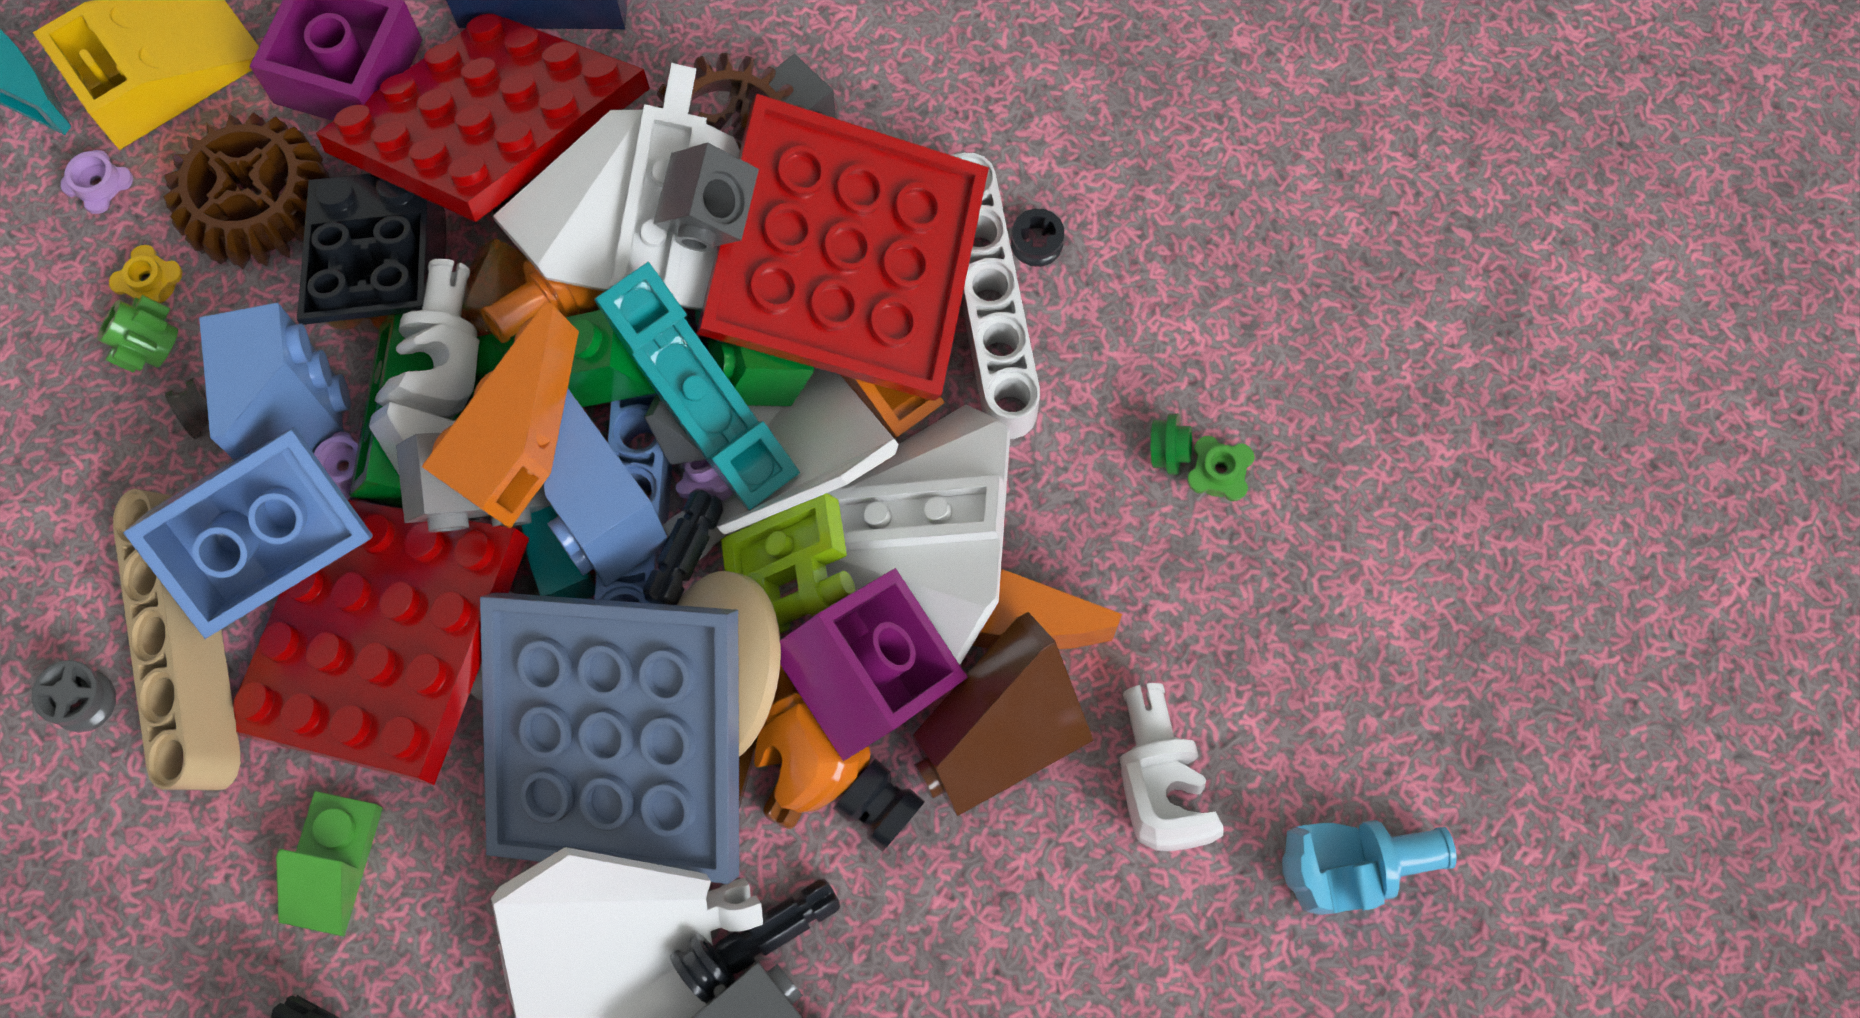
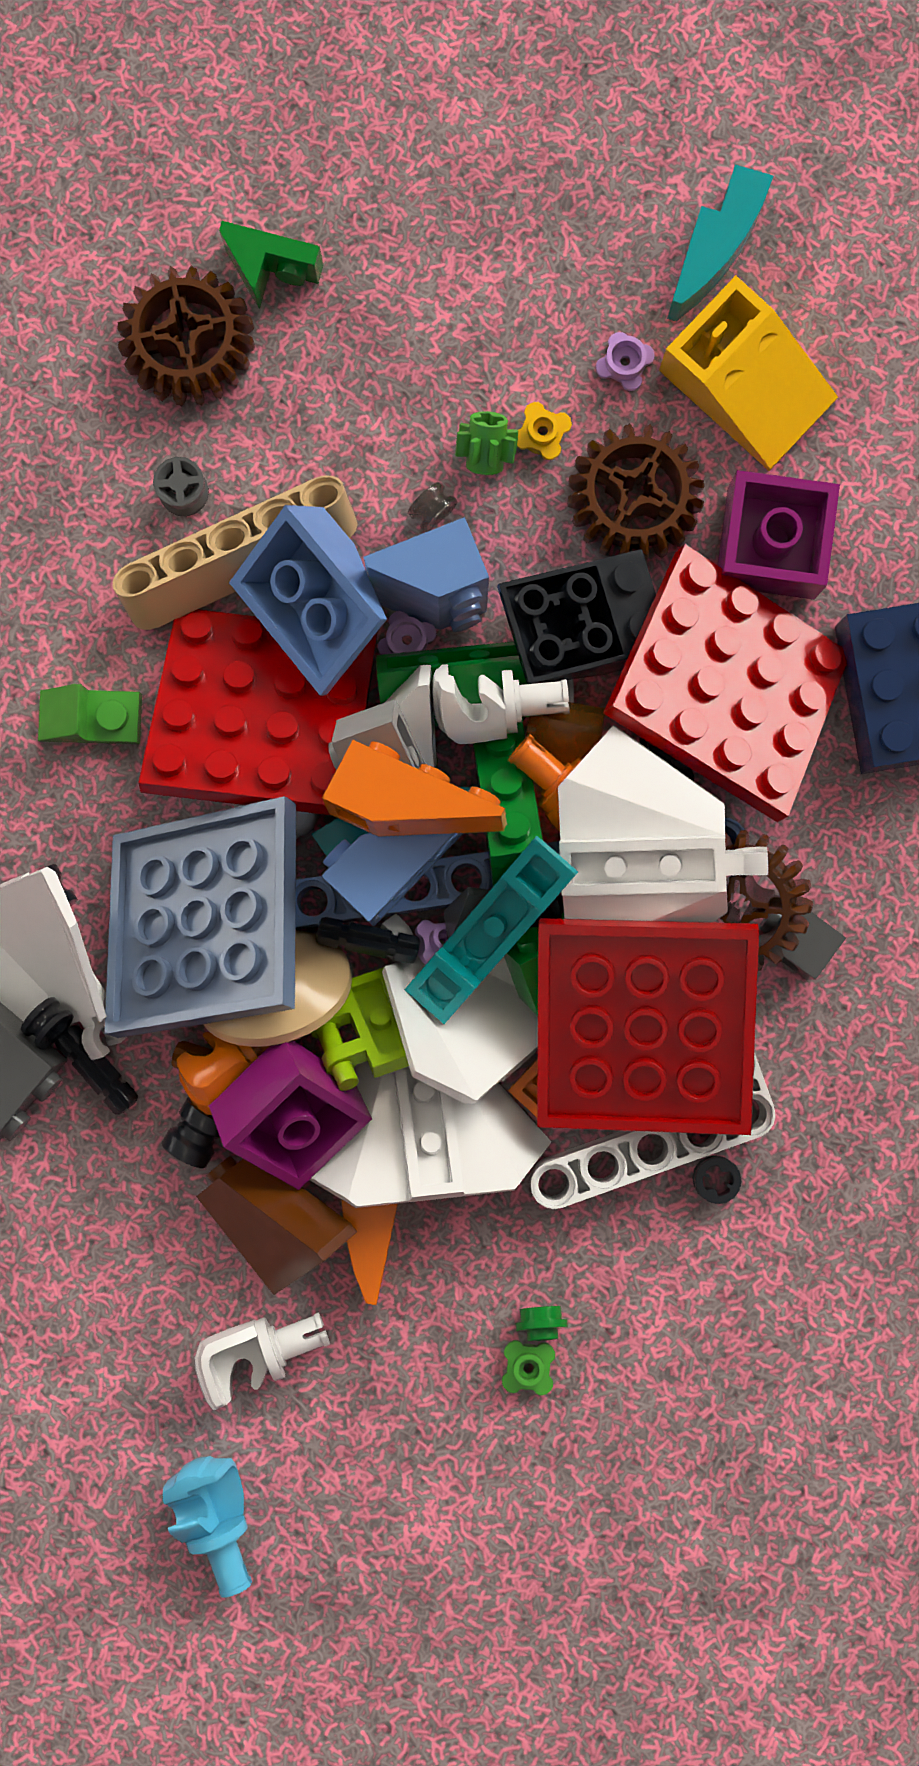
camera: 80 degrees right, 15 degrees up
(722, 182) = (644, 908): dark grey brick -> none

